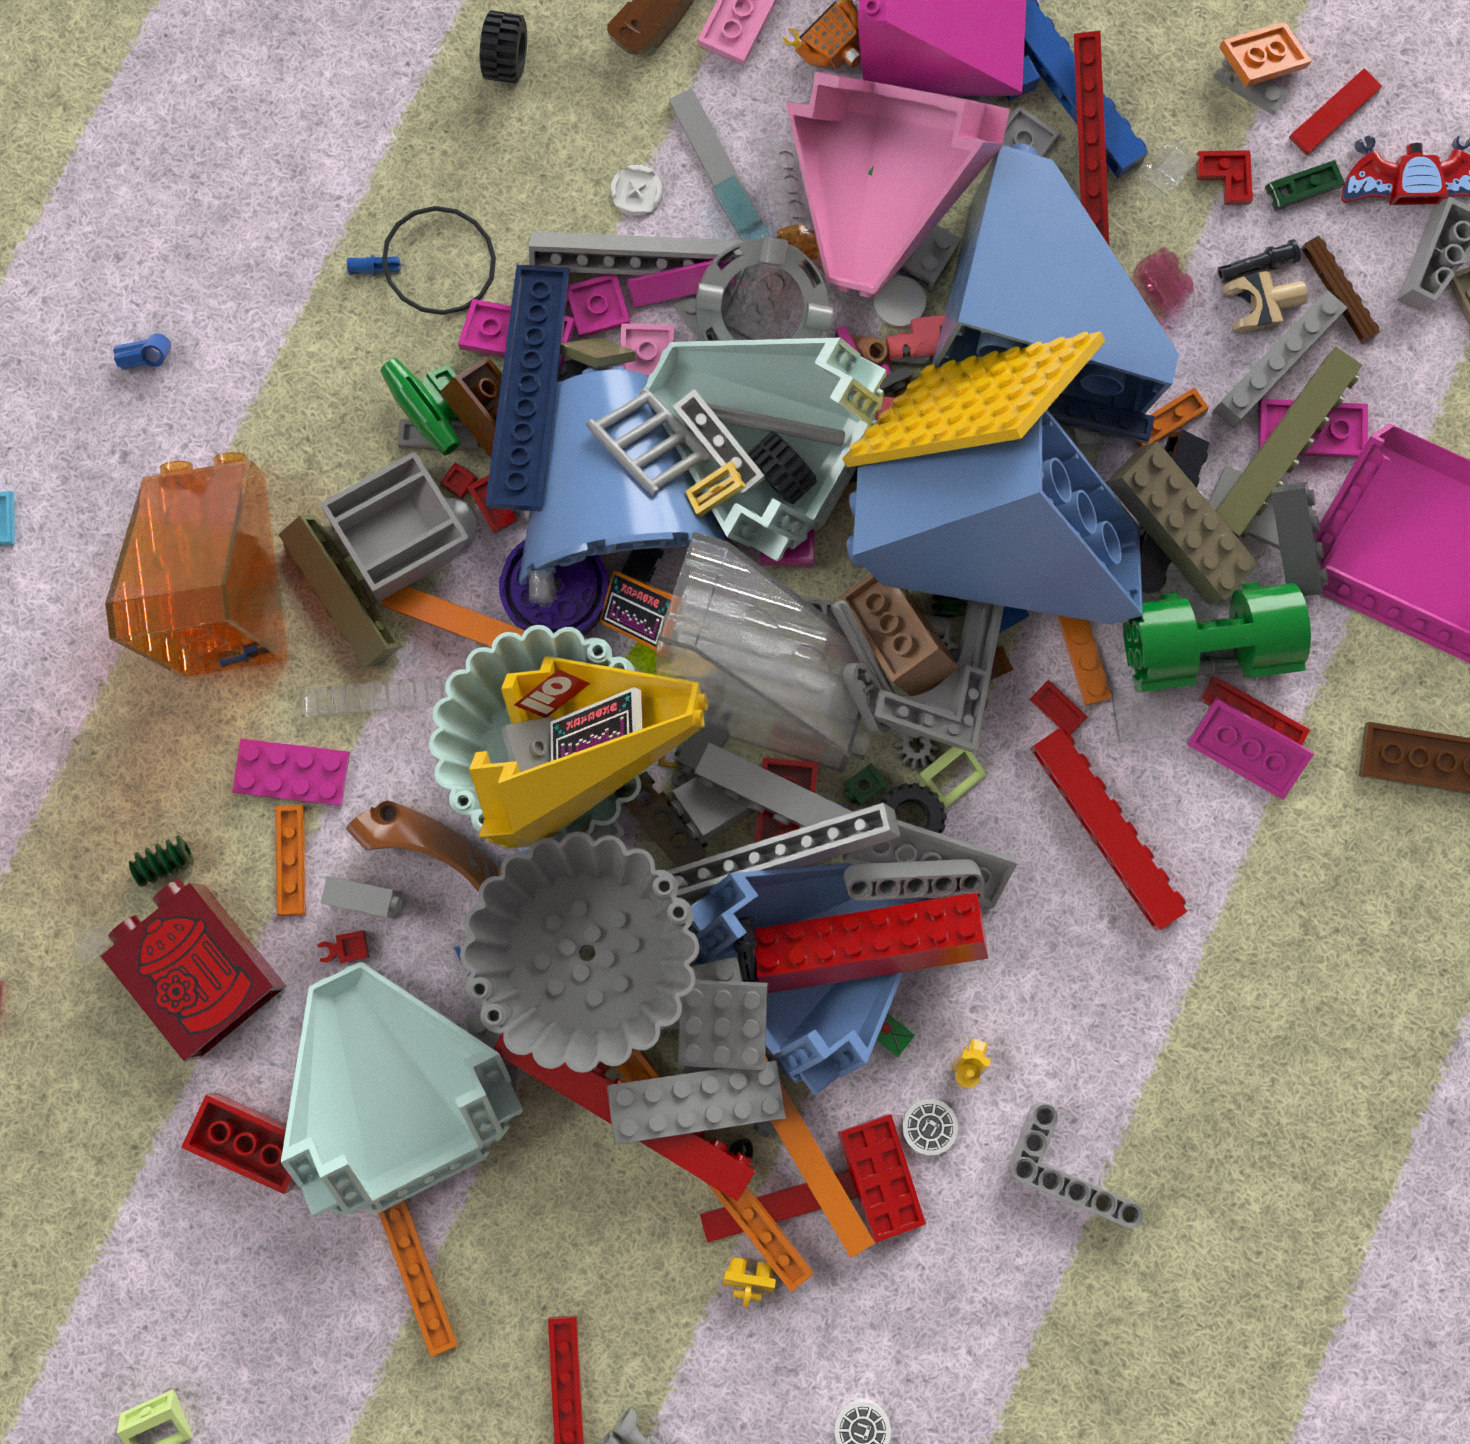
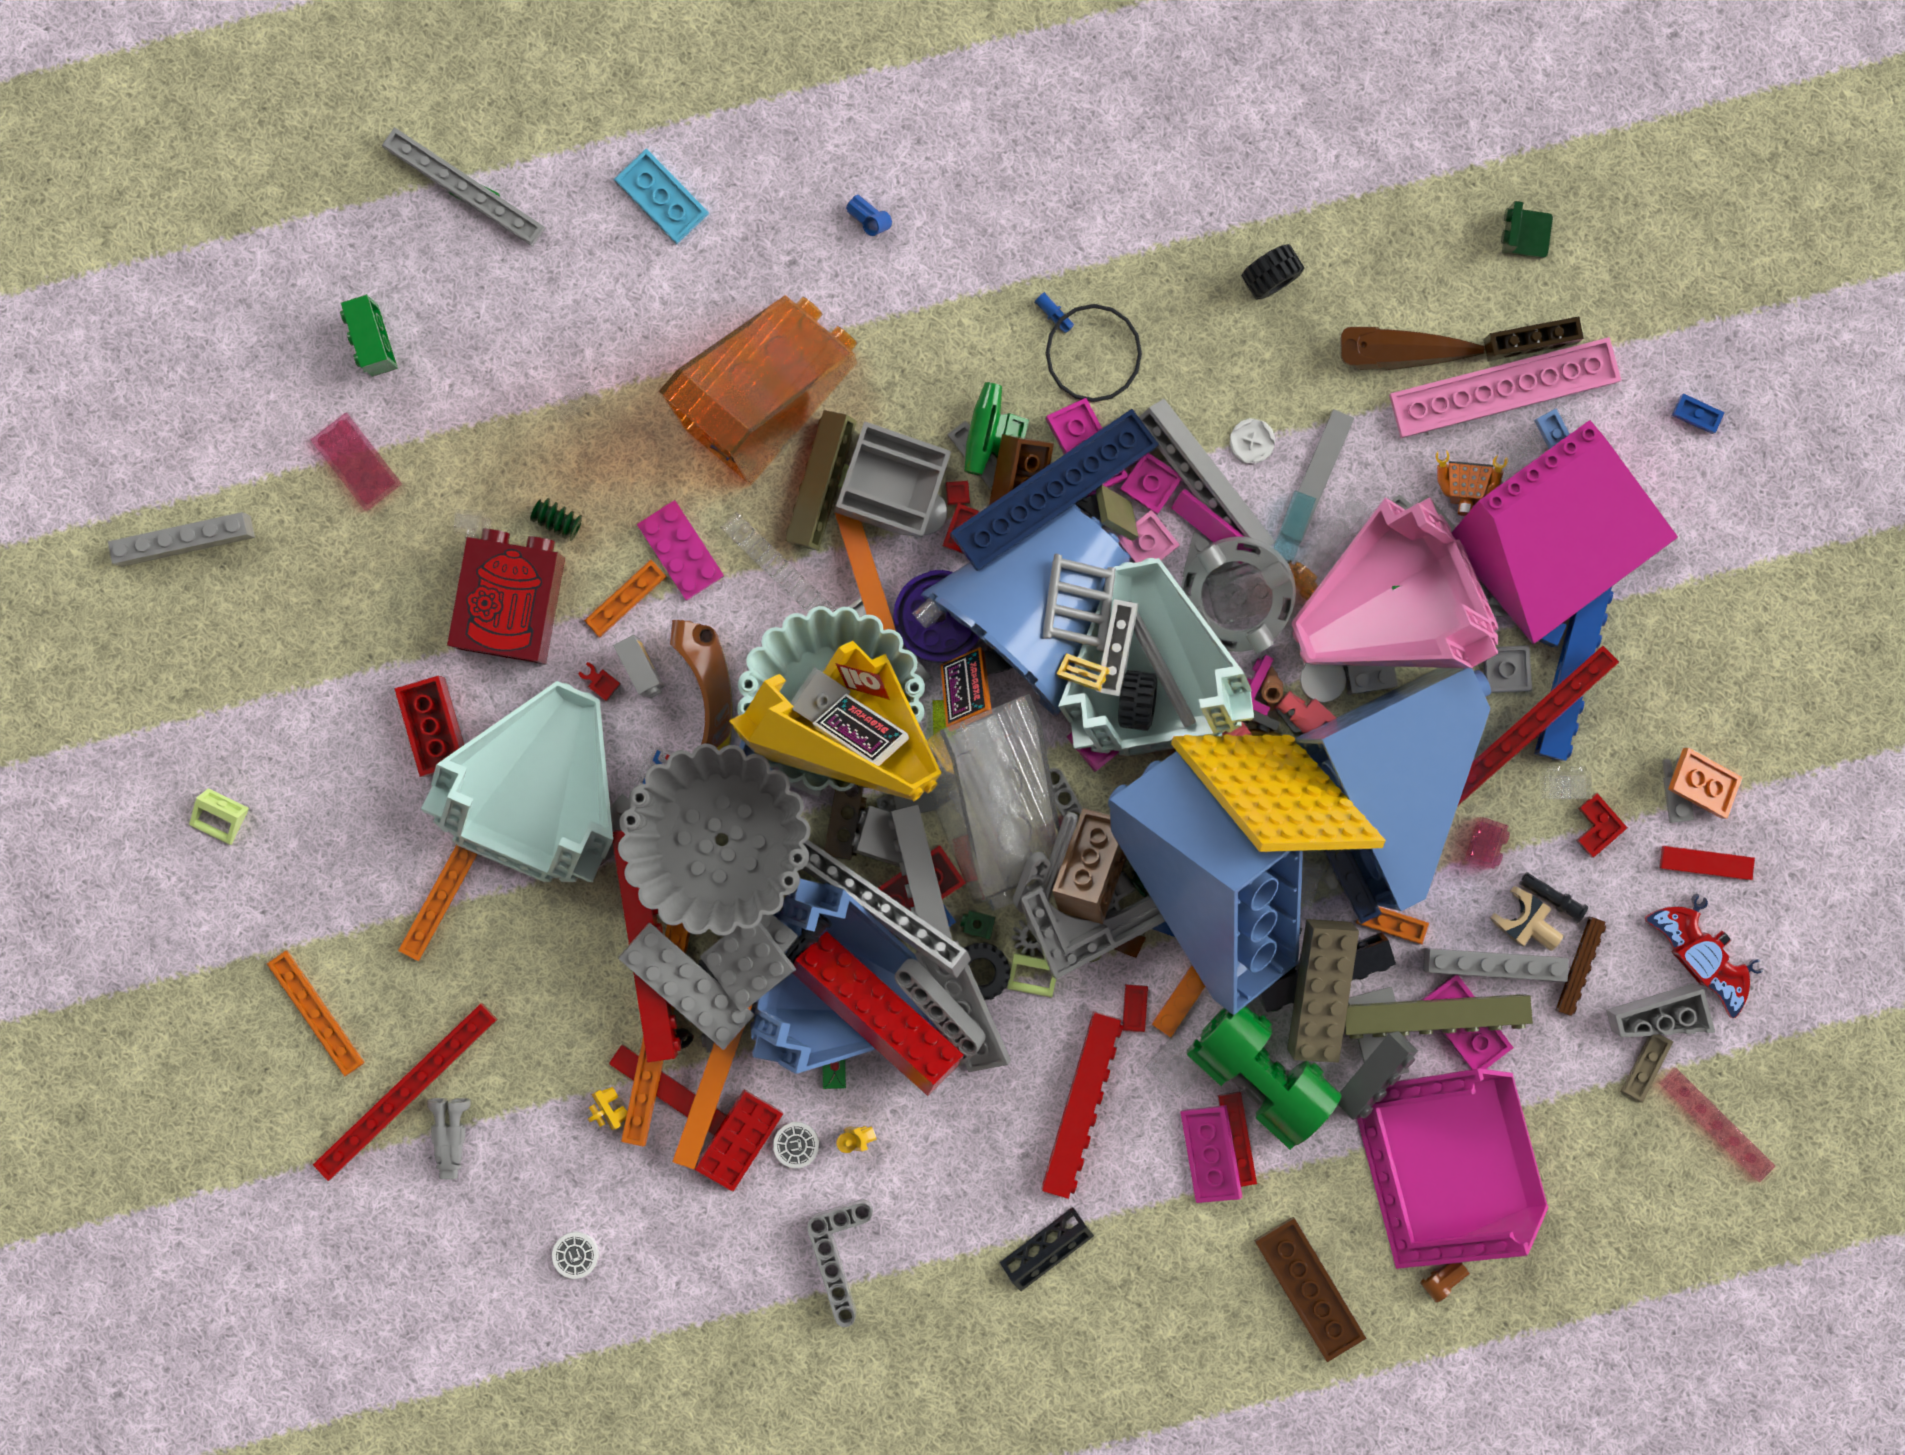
camera: 50 degrees right, 5 degrees up
(1226, 972) = (1049, 1256): none -> black fence
(1305, 185) = (1635, 884): dark green plate -> none

